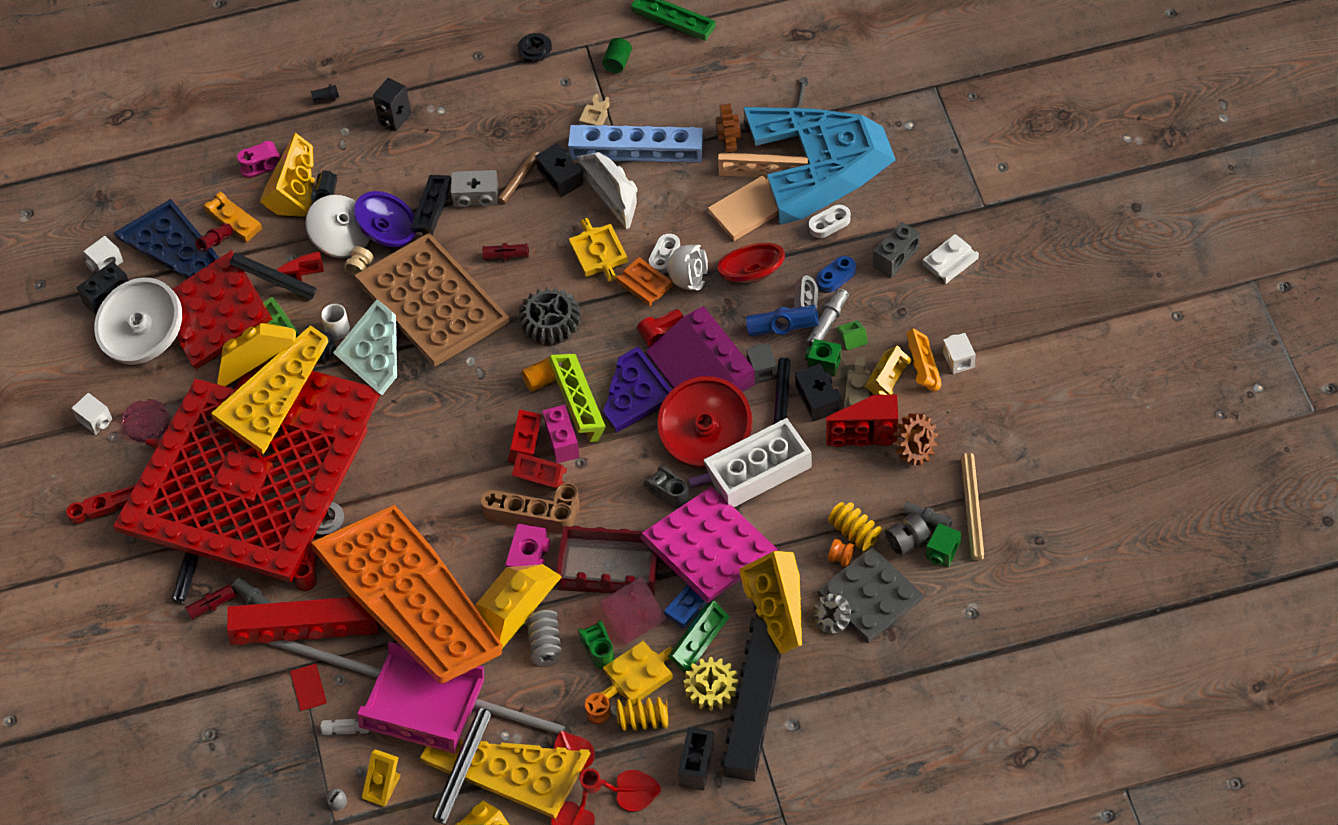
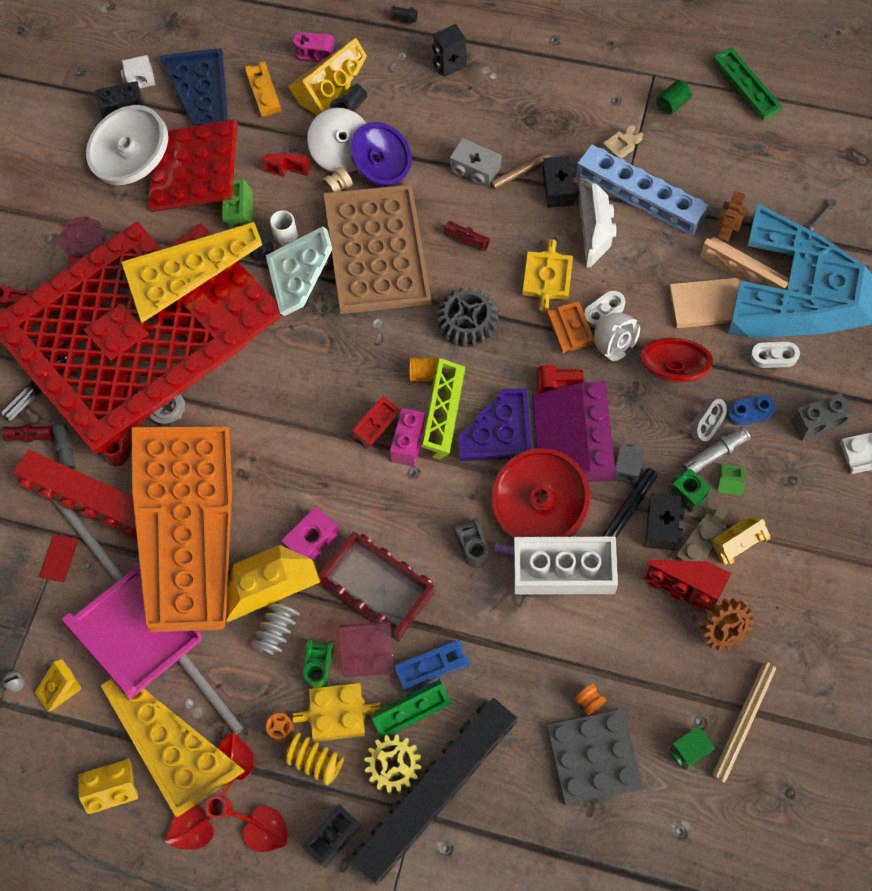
camera: 30 degrees right, 10 degrees up
(92, 414) = (42, 209): white brick -> none
(214, 237) = (233, 99): dark red pin -> none
(252, 349) = (195, 219): yellow wedge -> none
(273, 276) = (255, 159): black axle -> none
(341, 726) = (53, 610): white axle -> none
(431, 204) = (428, 159): black plate -> none
(461, 765) = (126, 717): axle -> none
(498, 507) = (339, 494): medium nougat beam -> none
(538, 40) = (615, 52): black gear -> none
(538, 470) = (365, 465): red hinge -> none
(707, 543) = (472, 623): dark pink plate -> none
(767, 322) = (683, 436): blue piece -> none
(775, 590) = (501, 711): yellow wedge -> none
(842, 613) = (548, 769): light grey gear -> none
(854, 526) = (618, 680): yellow piece -> none
(907, 534) = (672, 717): flat silver wheel -> none
(923, 360) = (783, 544): light orange plate -> none
(928, 515) = (694, 708): dark grey pin -> none
(959, 353) = (821, 554): white brick -> none

